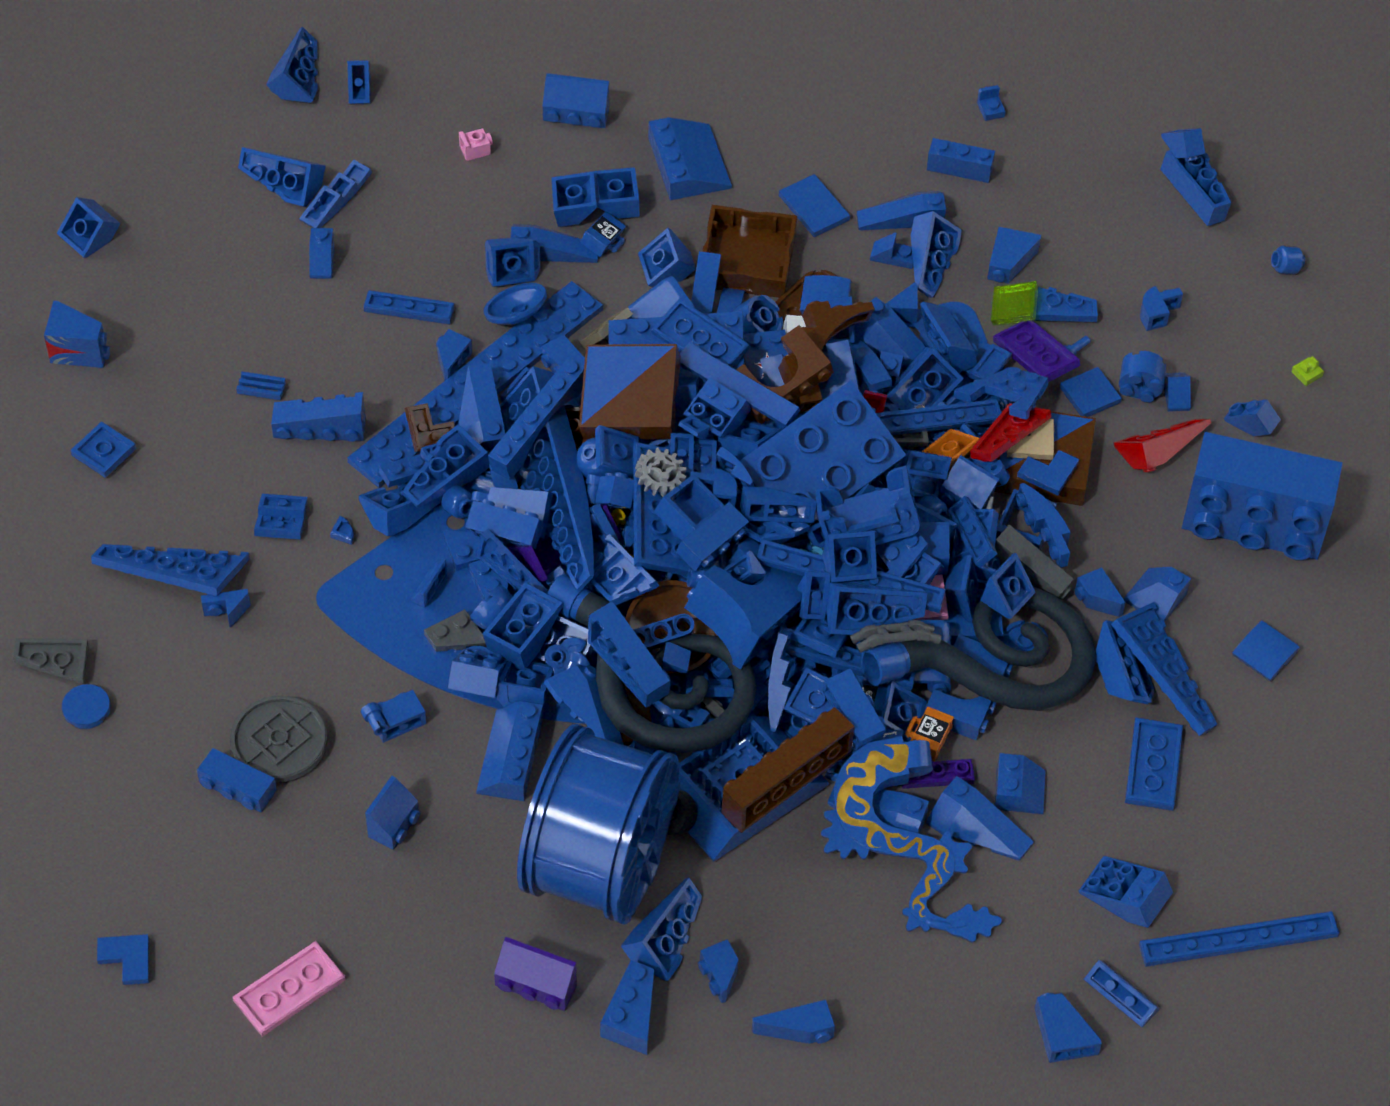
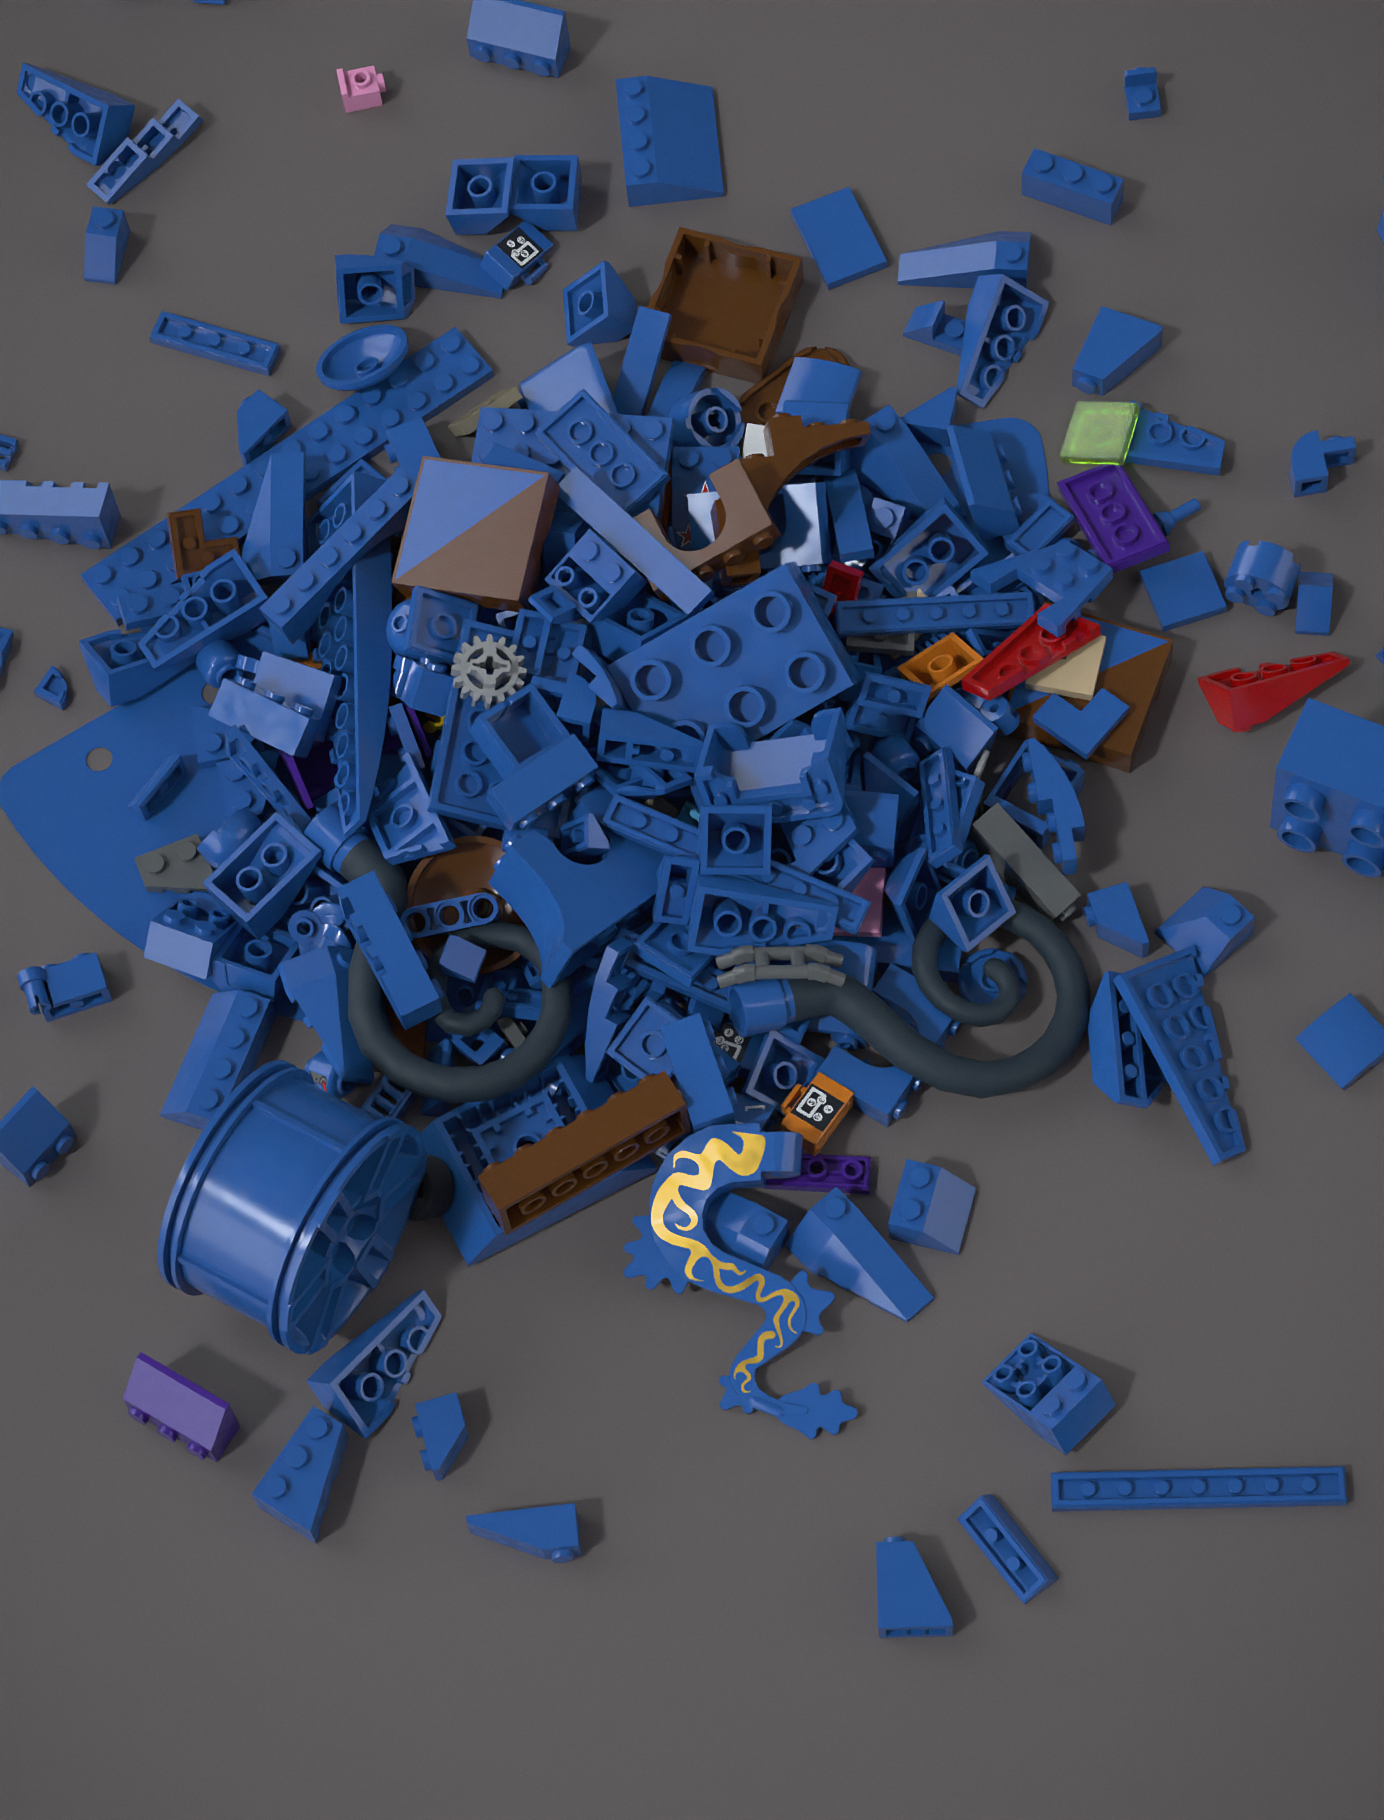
camera: 20 degrees right, 10 degrees up
(1154, 764) = (1138, 1199): blue tile -> none

